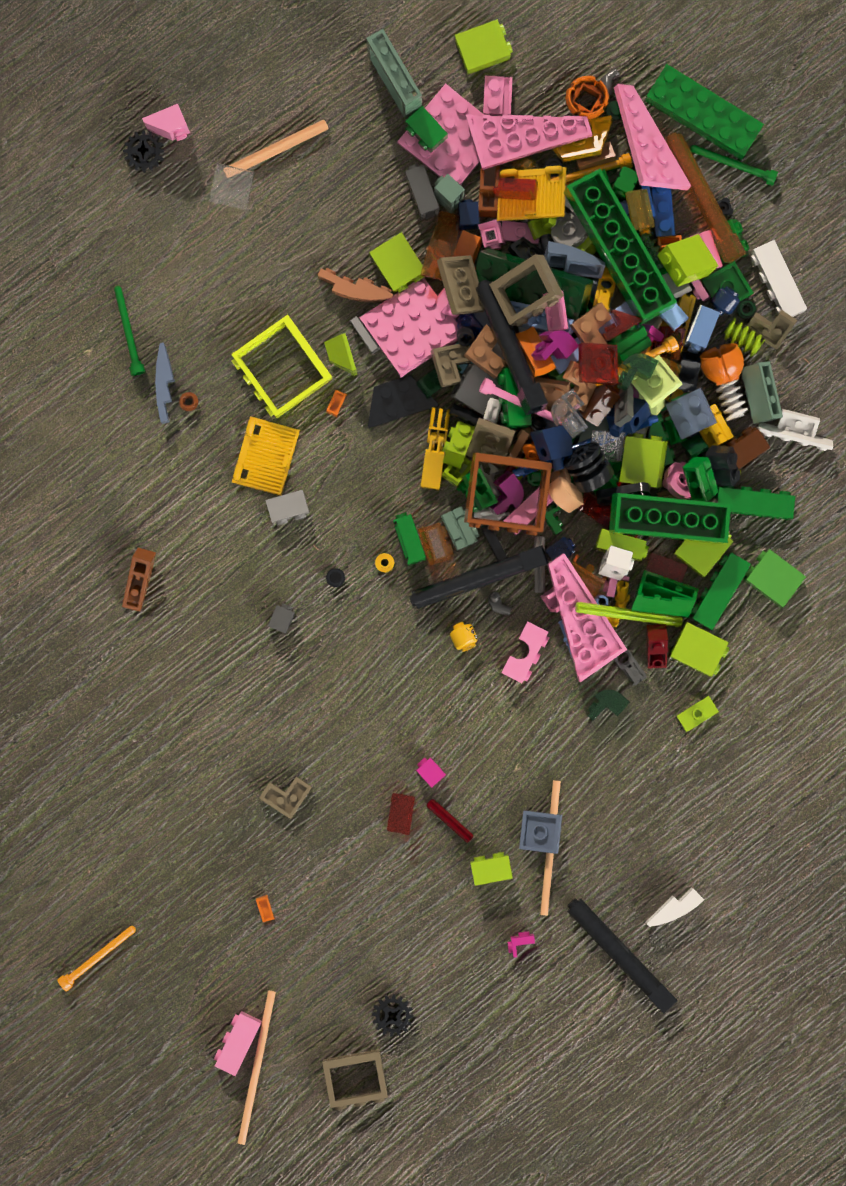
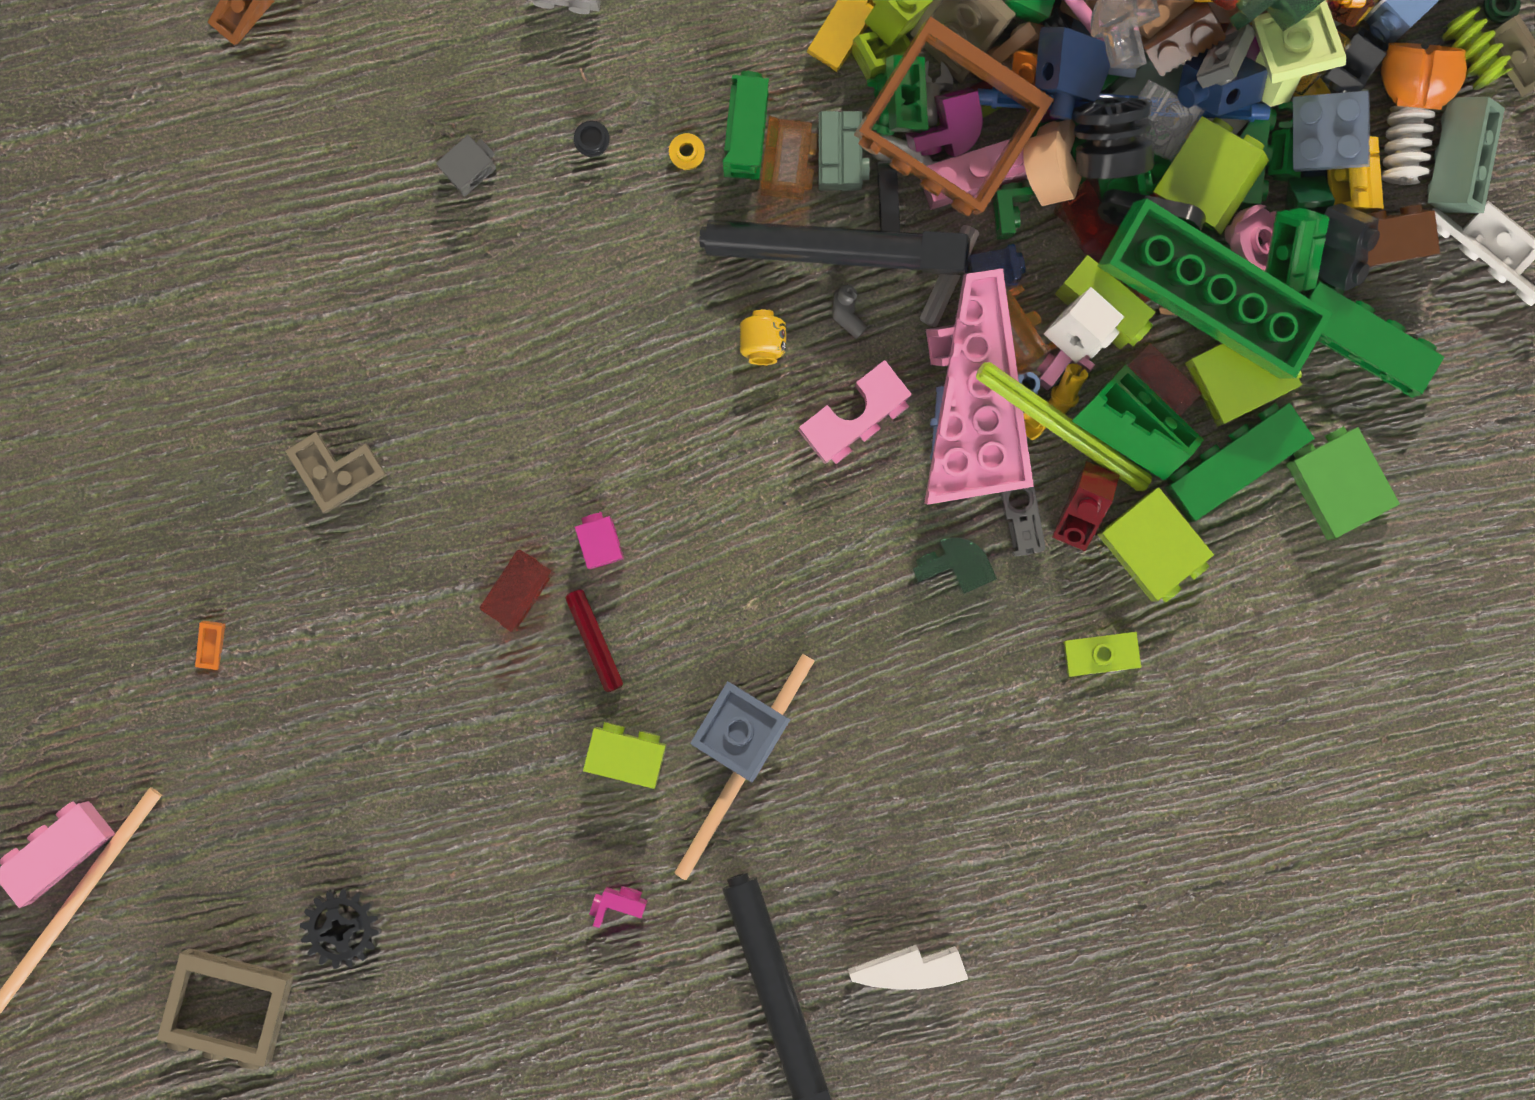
camera: 20 degrees right, 0 degrees up
(536, 476) = (1008, 118): green wheel -> none

